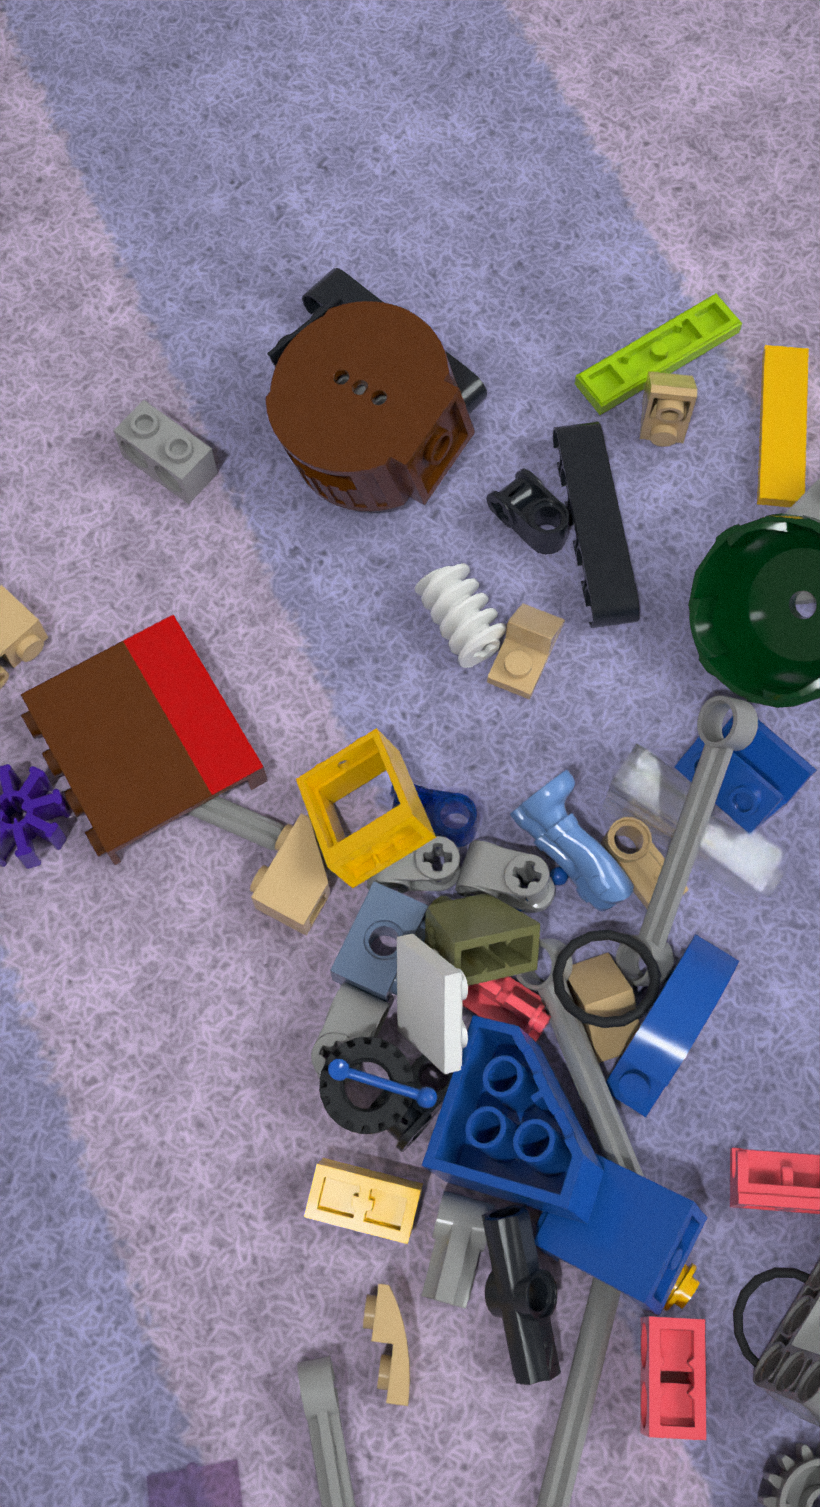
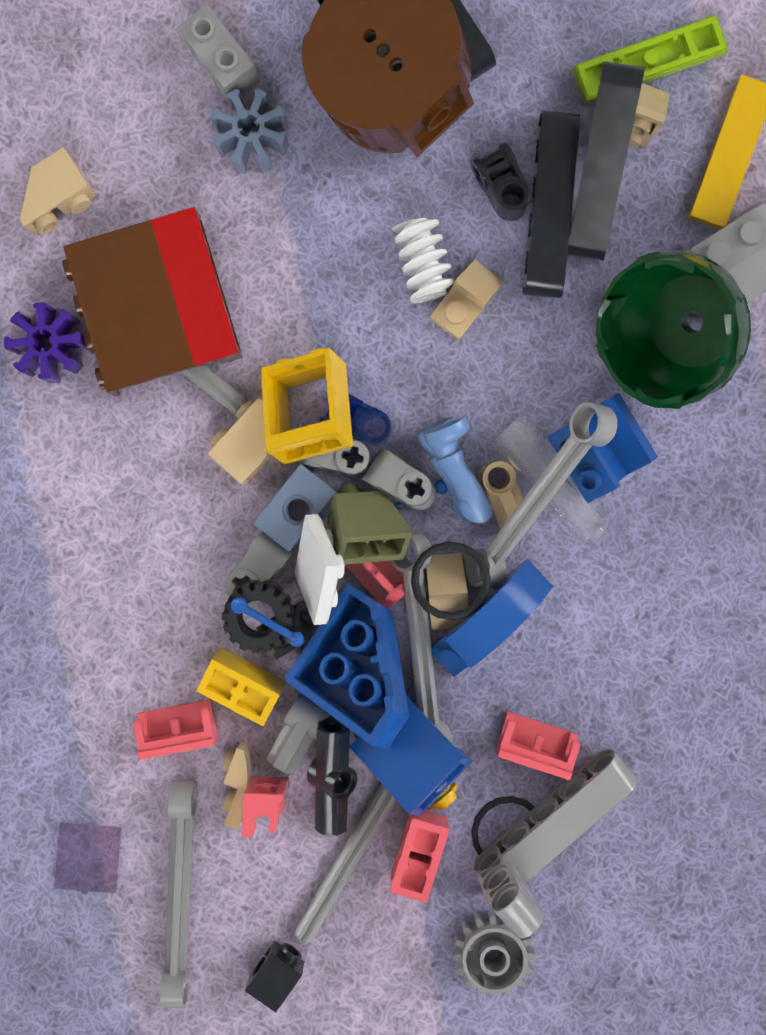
camera: 15 degrees right, 20 degrees up
(239, 517) = (266, 128): none -> sand blue gear
(286, 1286) = (175, 729): none -> coral hinge
(436, 1344) = (264, 797): none -> coral hinge
(644, 454) = (605, 159): none -> black beam

